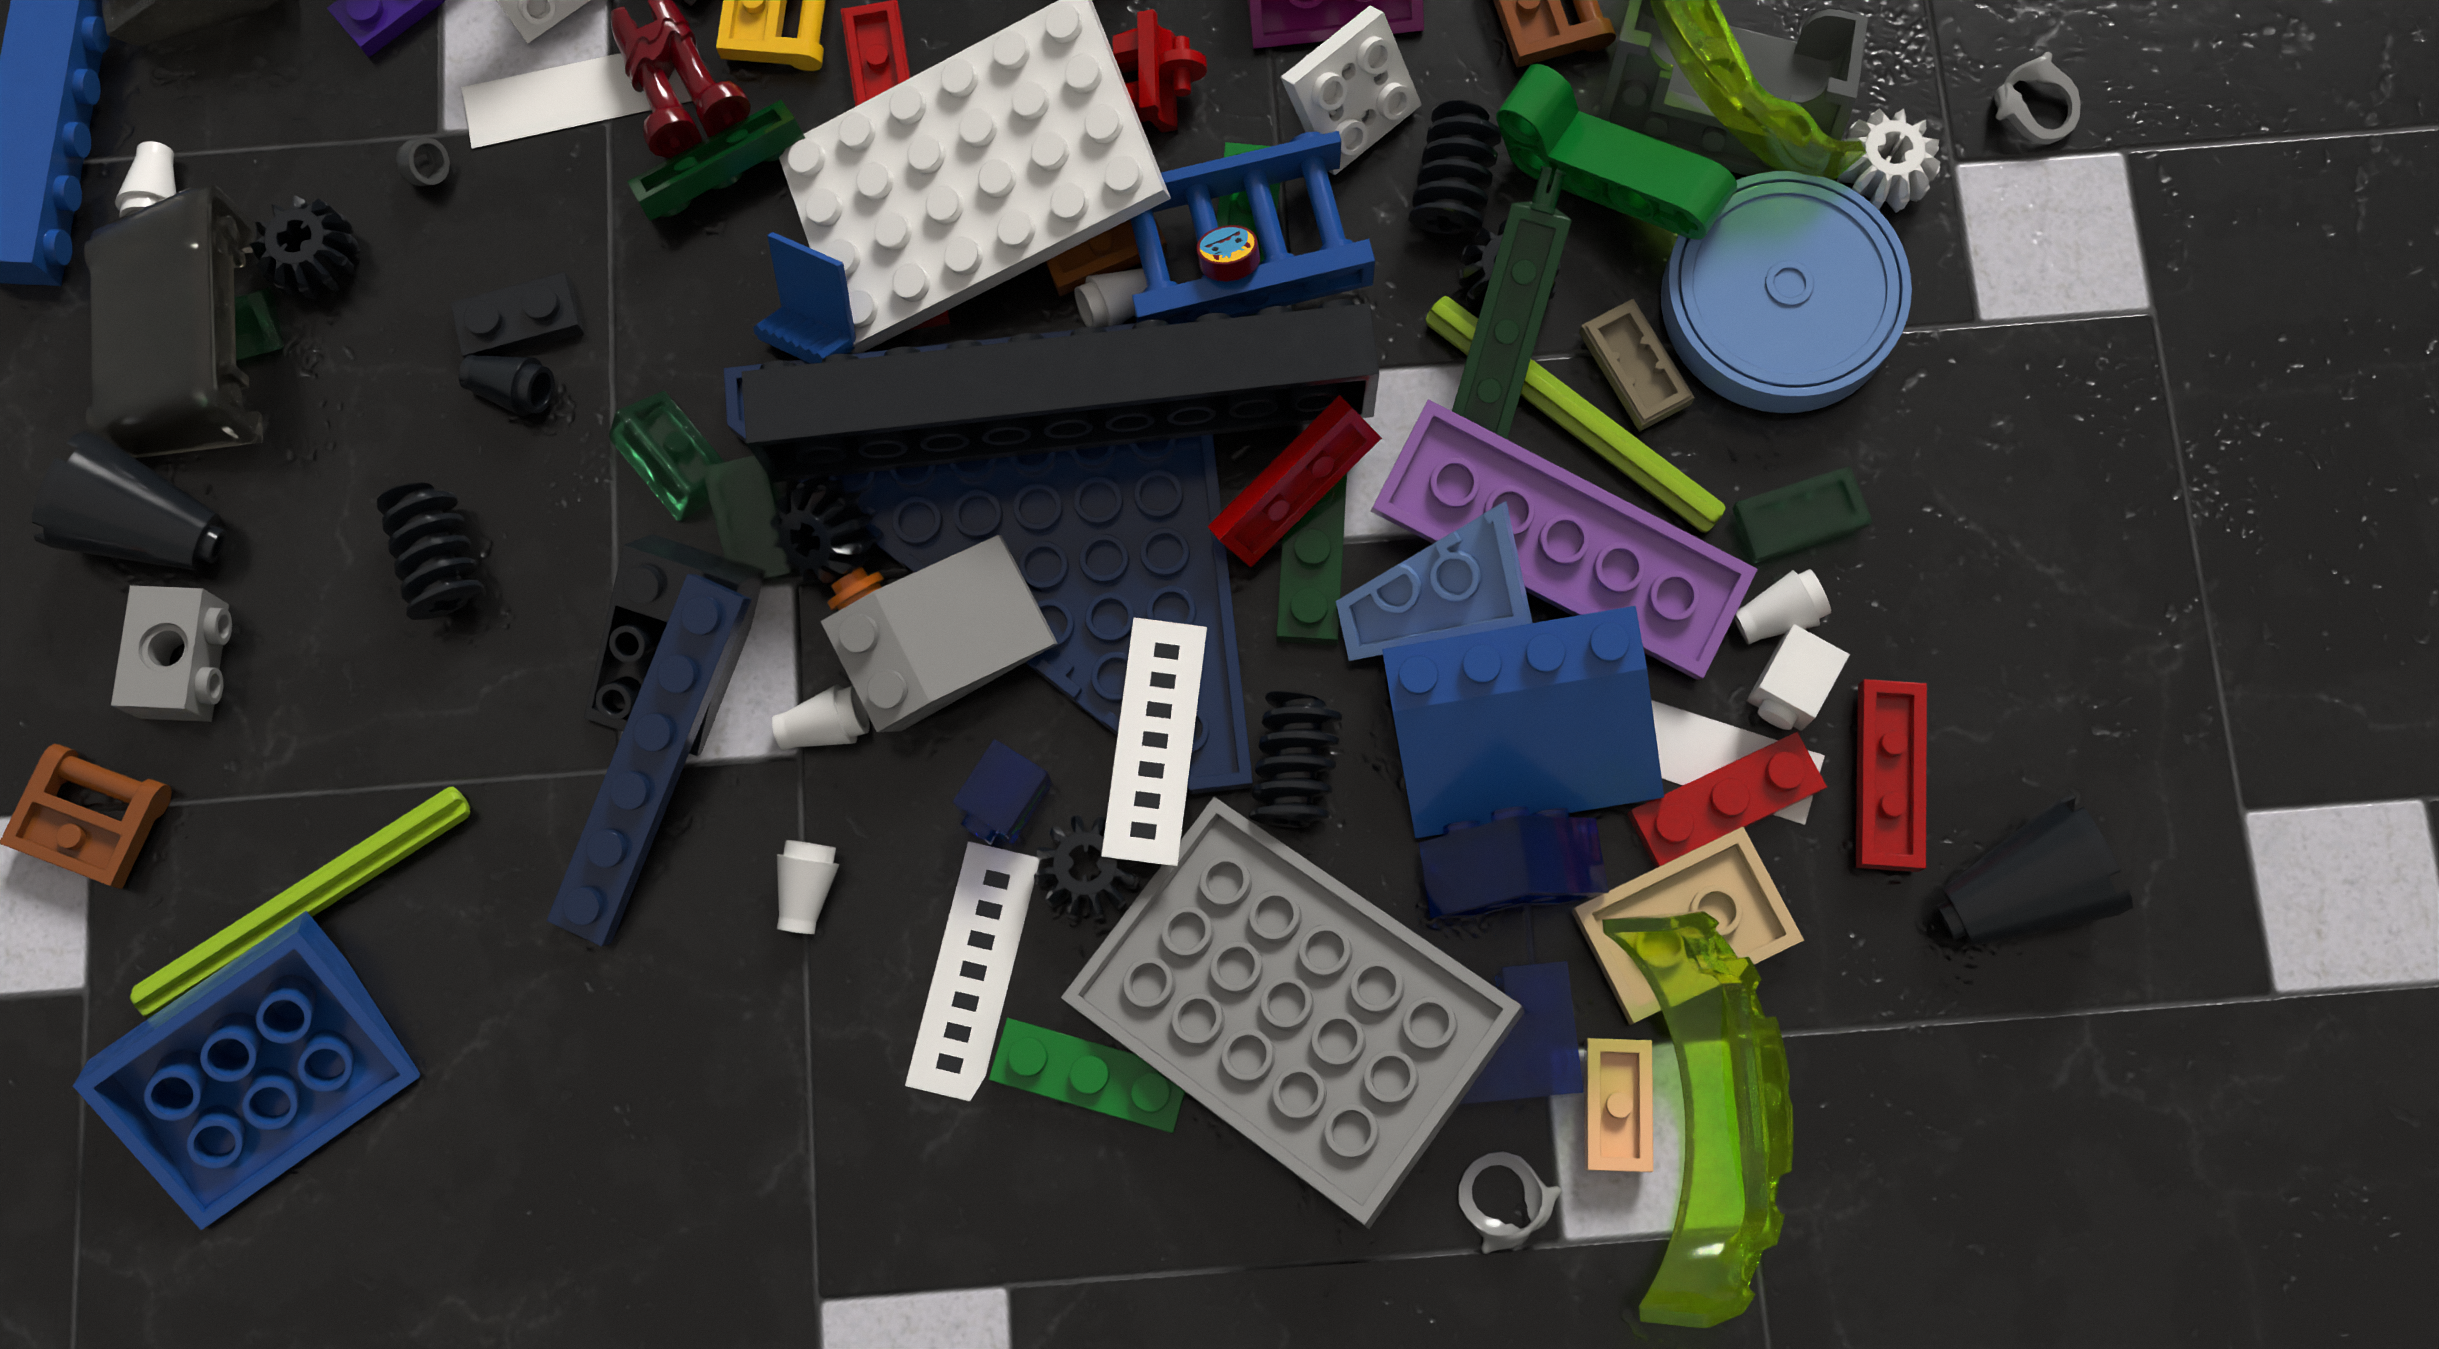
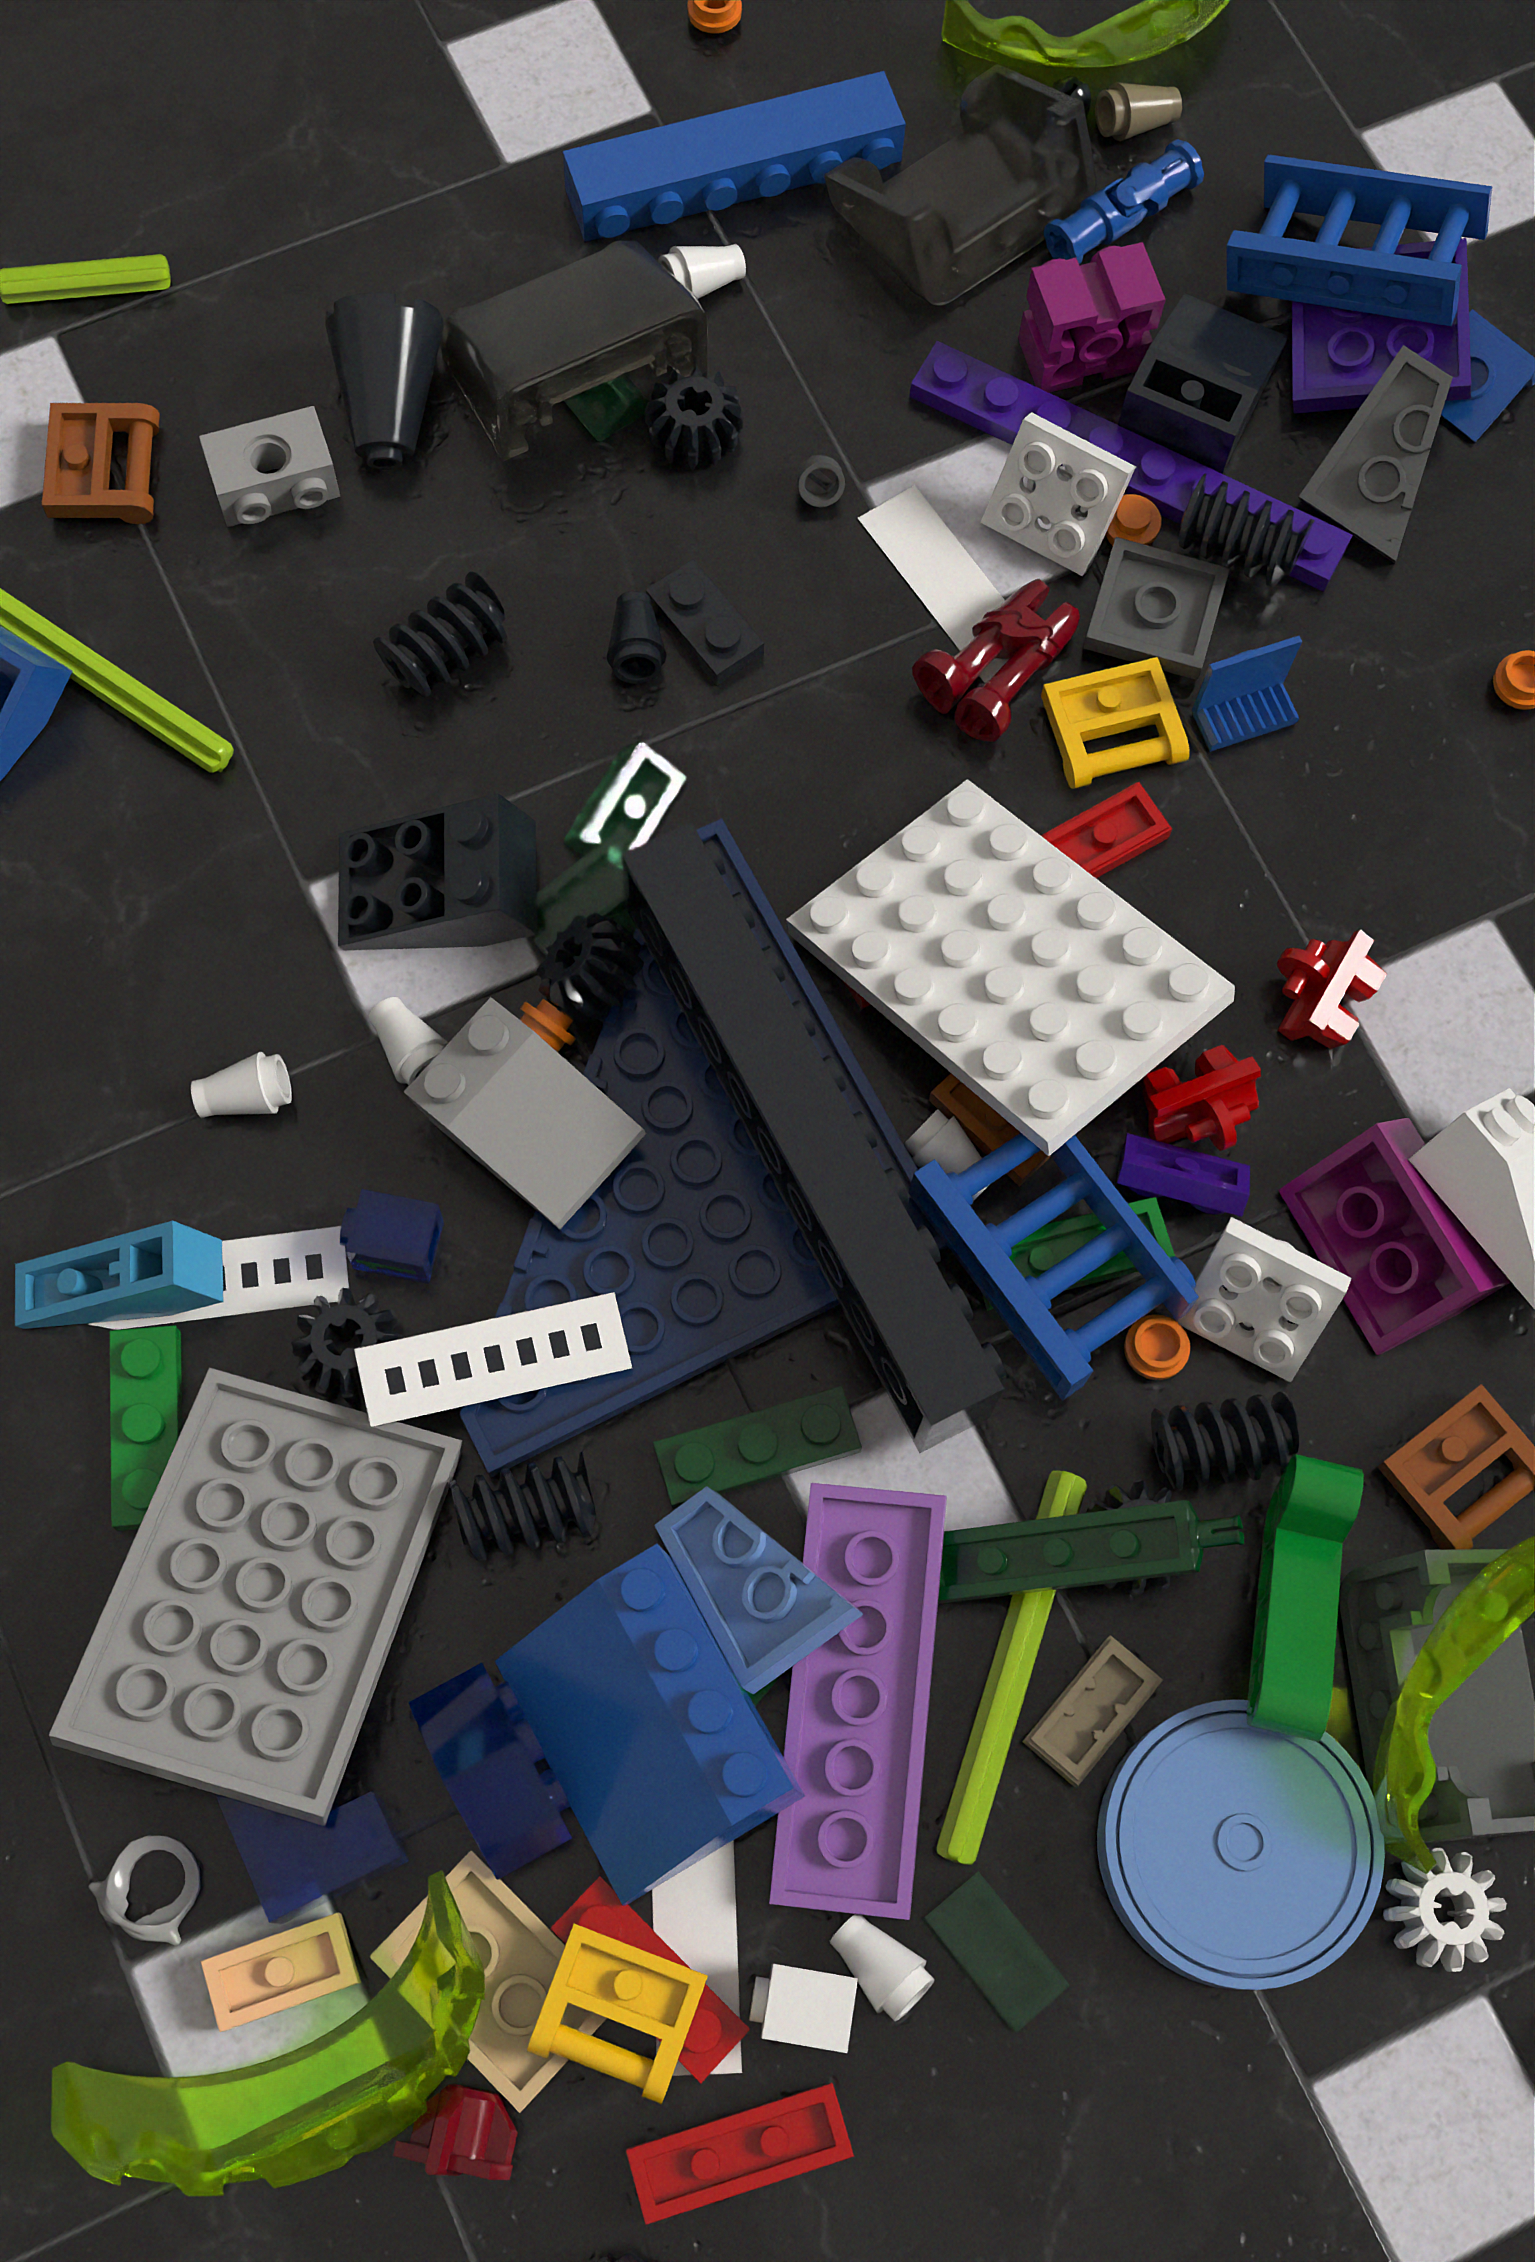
camera: 60 degrees right, 5 degrees down
(649, 759) = (309, 900): dark blue plate -> none
(716, 161) = (930, 730): dark green plate -> none
(814, 303) = (801, 877): blue piece -> none
(944, 1054) = (121, 1278): none -> dark azure slope
(1214, 113) = (1184, 1174): none -> dark purple plate
(1228, 253) = (1016, 1235): tile -> none
(1294, 481) = (810, 1395): red plate -> none
(1355, 195) = (1157, 1347): none -> orange plate
(1737, 814) = (626, 1988): none -> yellow plate
(1804, 993) = (462, 2133): none -> dark red piece

